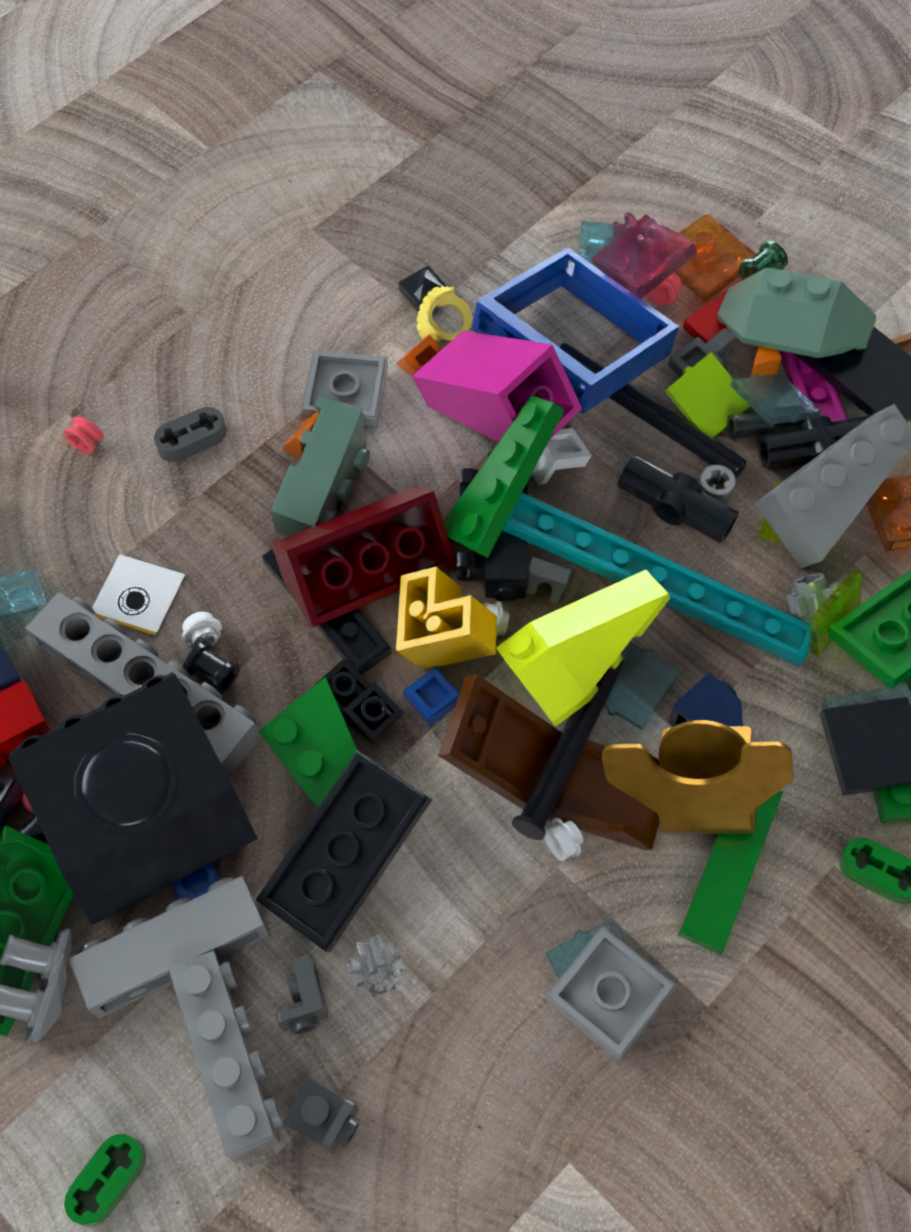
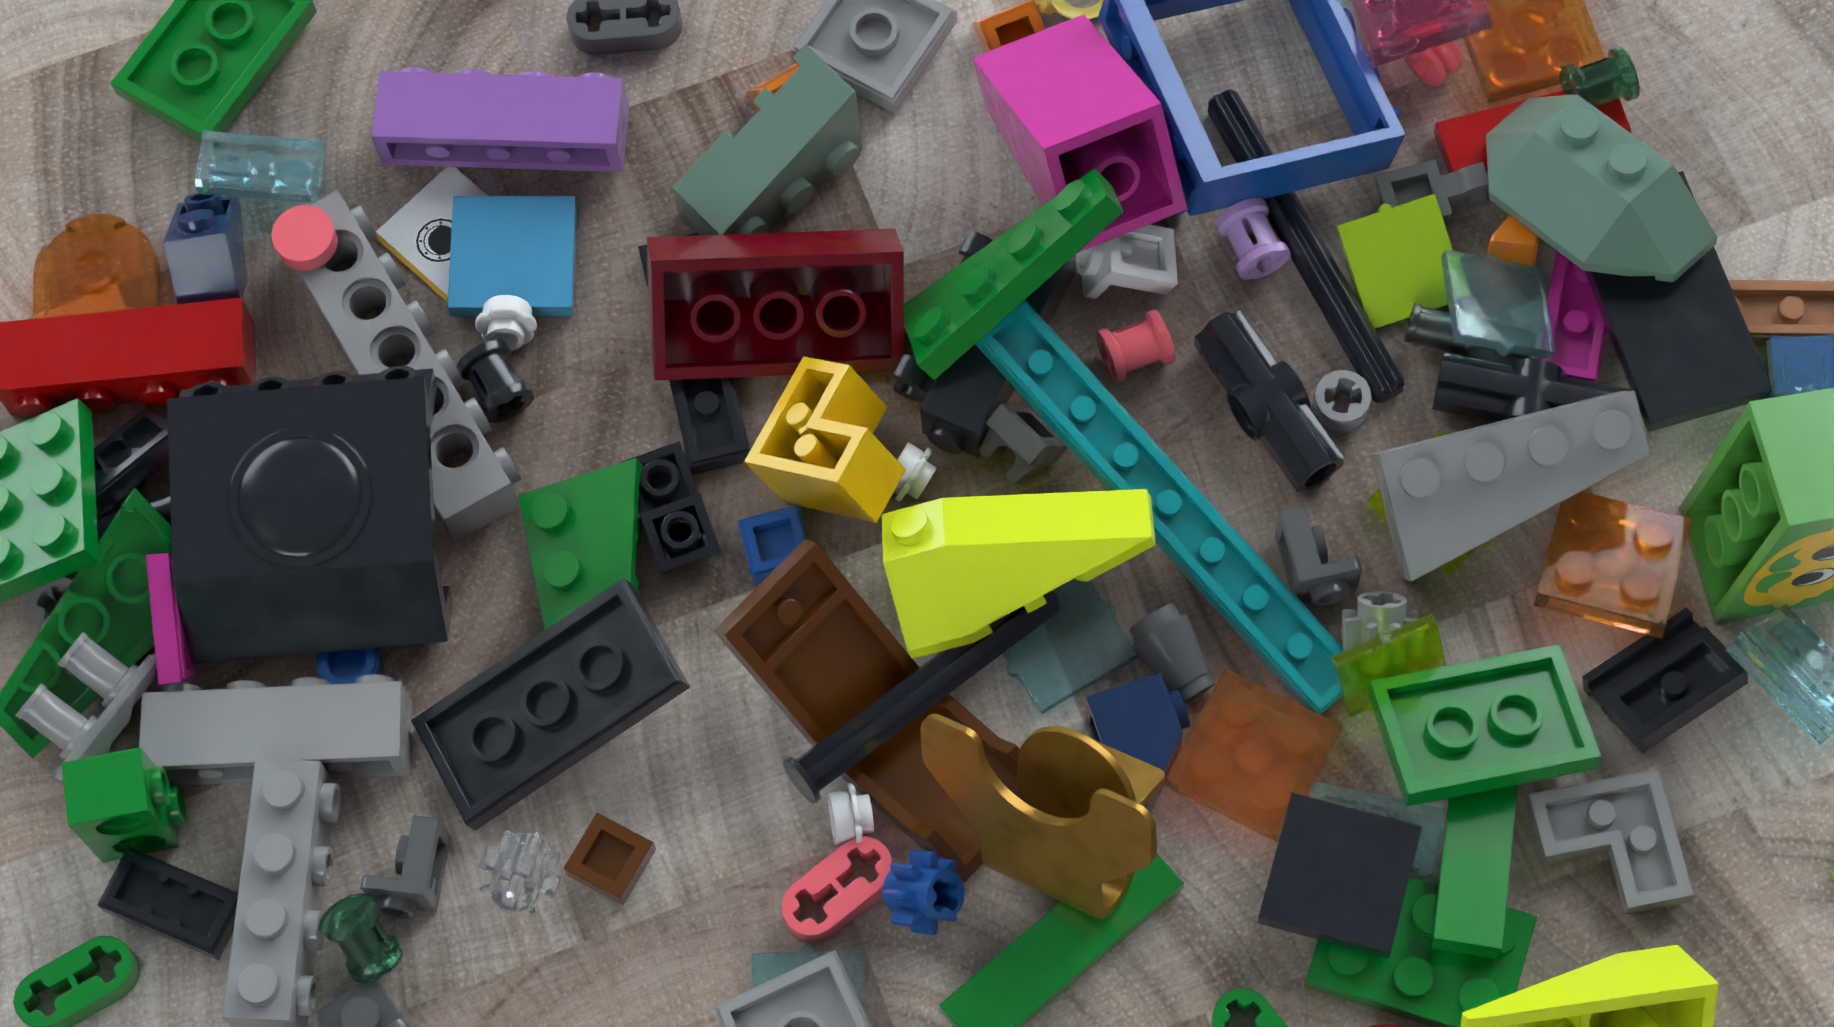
camera: 30 degrees right, 5 degrees up
(51, 626) = (304, 237): none -> coral tile
(65, 900) = (169, 637): none -> dark pink tile
(87, 1039) = (122, 803): none -> green brick
(142, 514) = (501, 120): none -> medium lavender brick
(148, 1091) = (171, 903): none -> black plate
(185, 586) = (513, 249): none -> dark azure tile
(285, 1051) = (361, 937): none -> clear green bush
(428, 931) = (609, 858): none -> reddish brown plate
(587, 497) = (1135, 346): none -> coral bush
(588, 893) = (828, 878): none -> coral beam
(619, 416) = (1251, 218): none -> lavender bush
(636, 865) = (923, 892): none -> blue gear
(700, 657) = (1171, 648): none -> dark grey cone
(746, 576) = (1304, 560): none -> dark grey bracket
(781, 699) = (1252, 754): none -> clear orange plate

